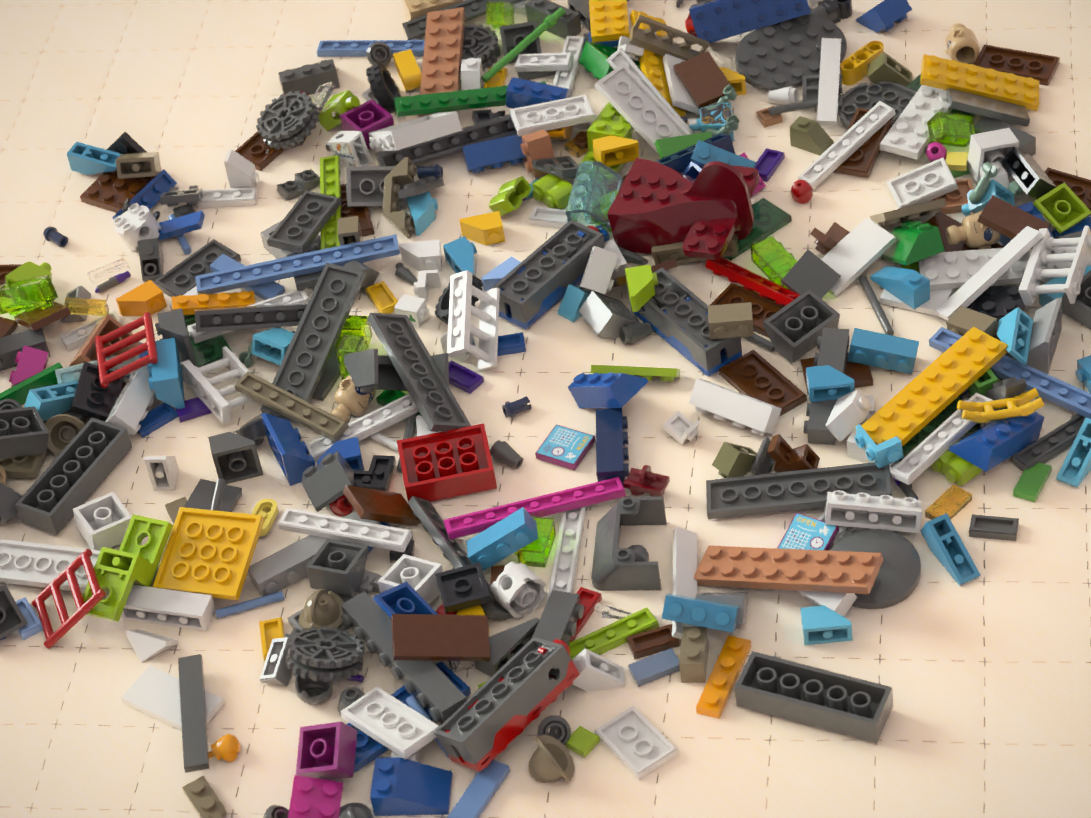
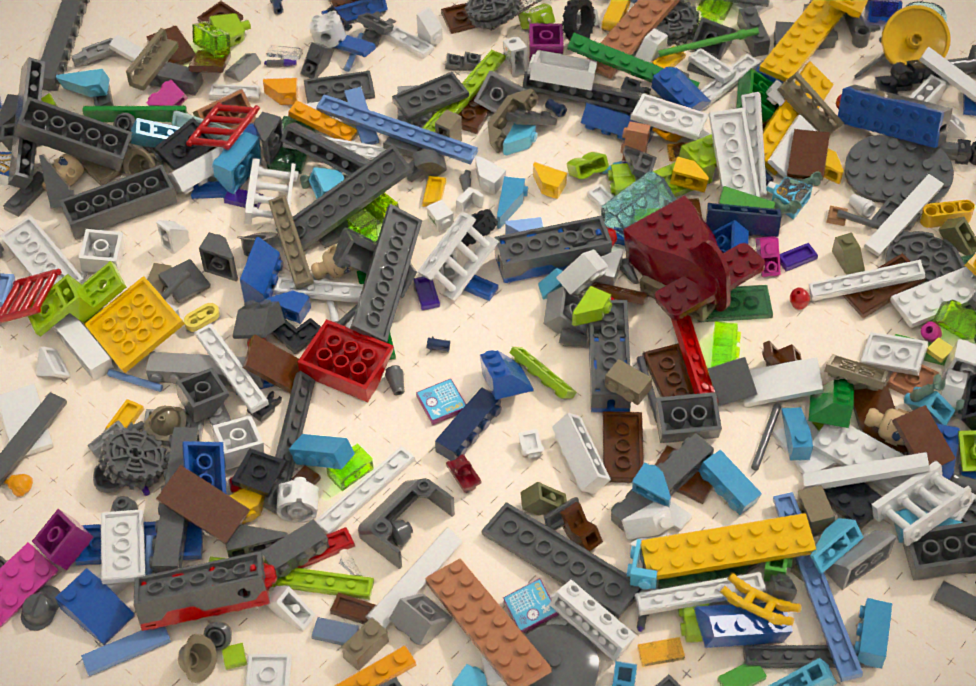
camera: 30 degrees right, 10 degrees up
(87, 306) = (239, 73): clear yellow tile -> none
(537, 506) = (372, 439): dark pink tile -> none
(700, 612) = (390, 616): dark azure brick -> none
(708, 153) = (749, 233): dark azure brick -> none

